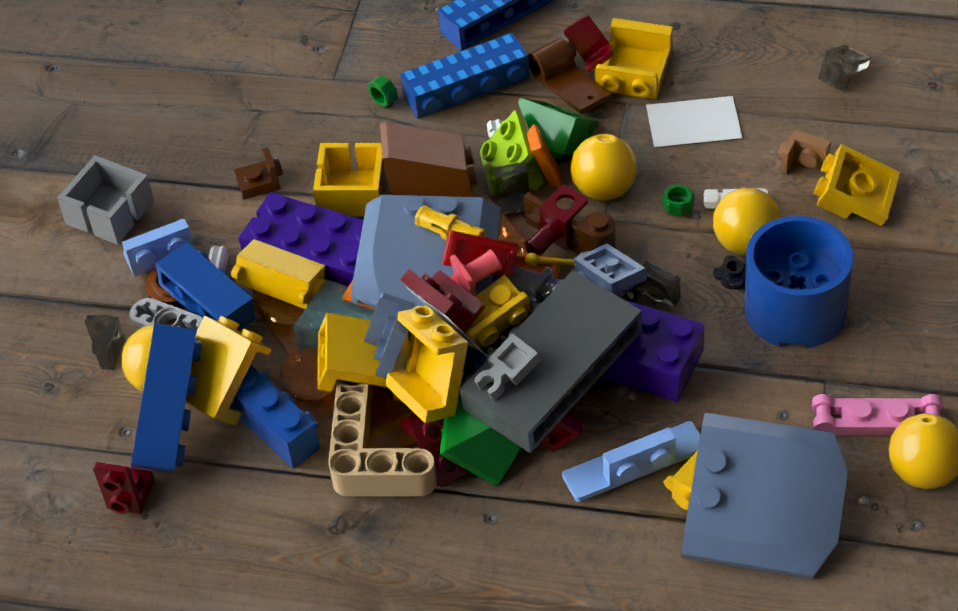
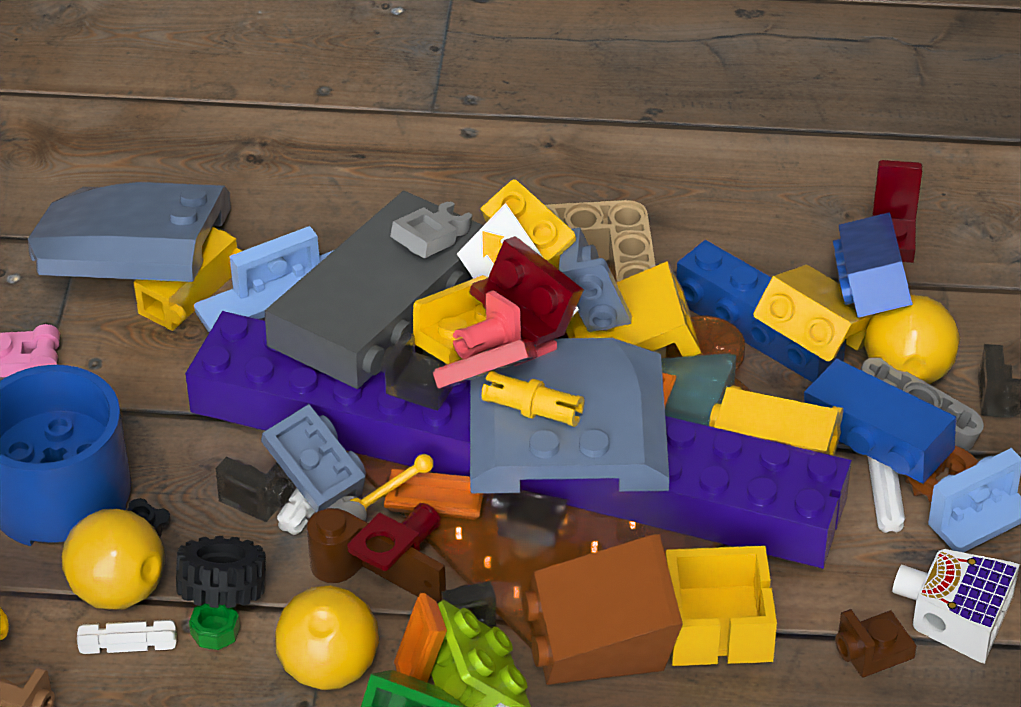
camera: 170 degrees right, 5 degrees down
(194, 191) = (960, 599): none -> torso
(668, 198) = (220, 571): none -> black tyre

